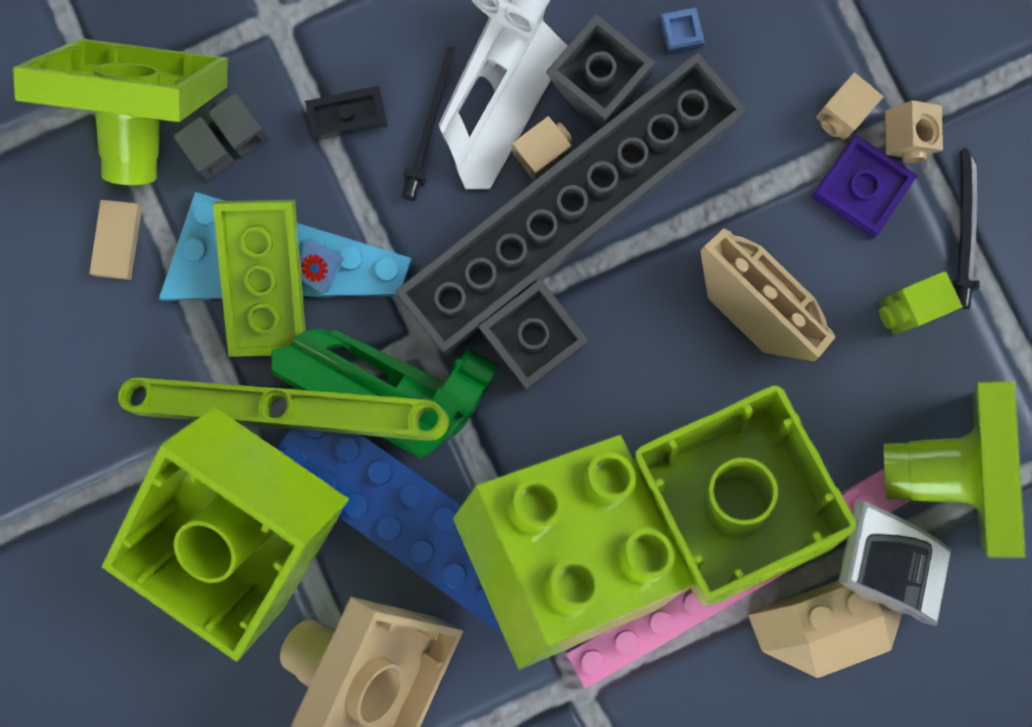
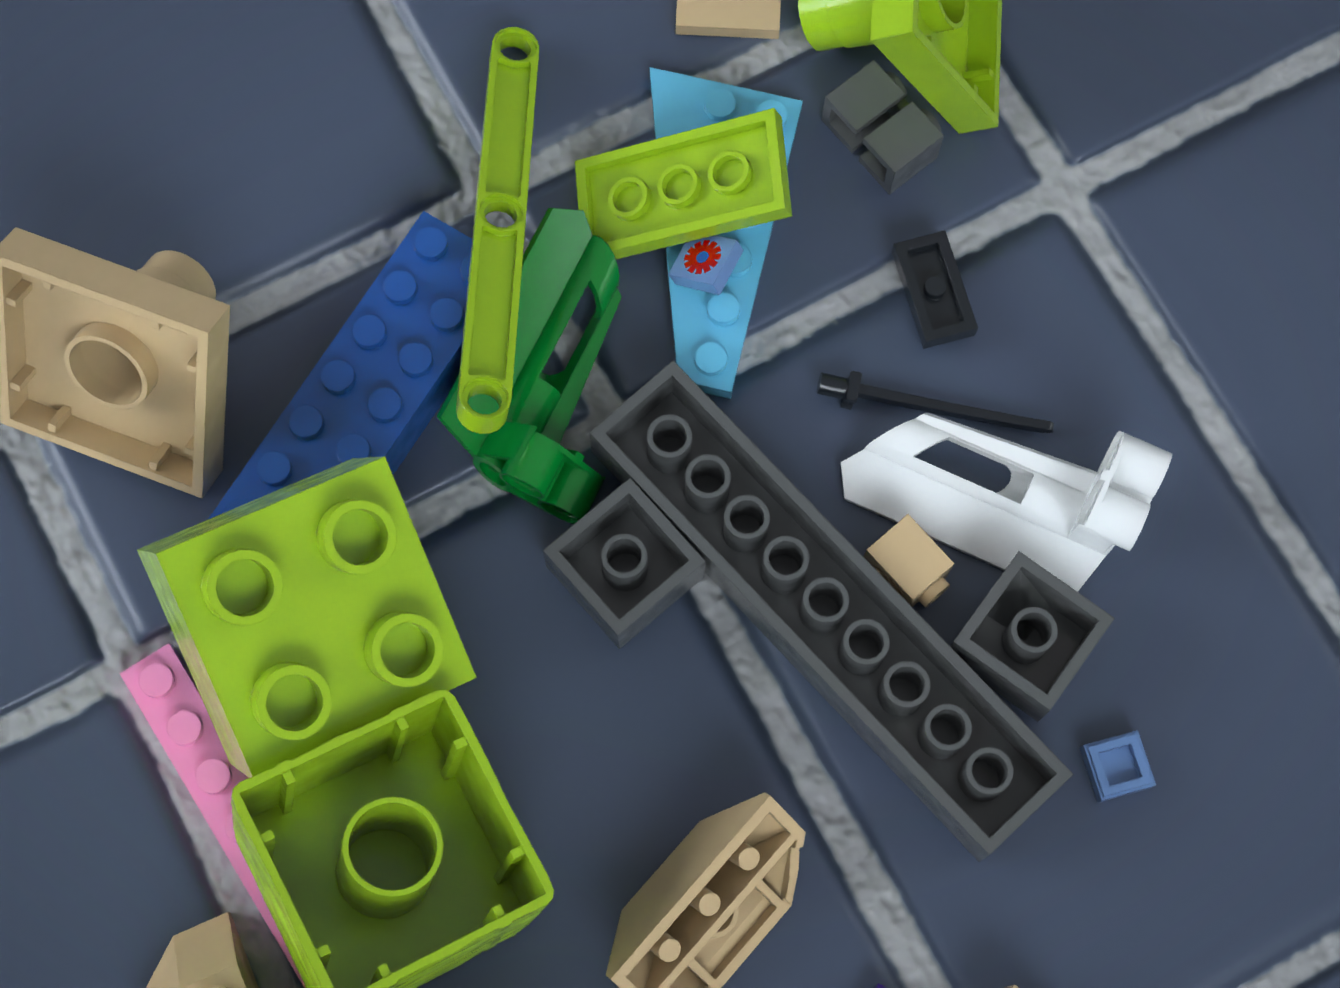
camera: 85 degrees right, 10 degrees down
(222, 531) = (324, 155): lime brick -> none

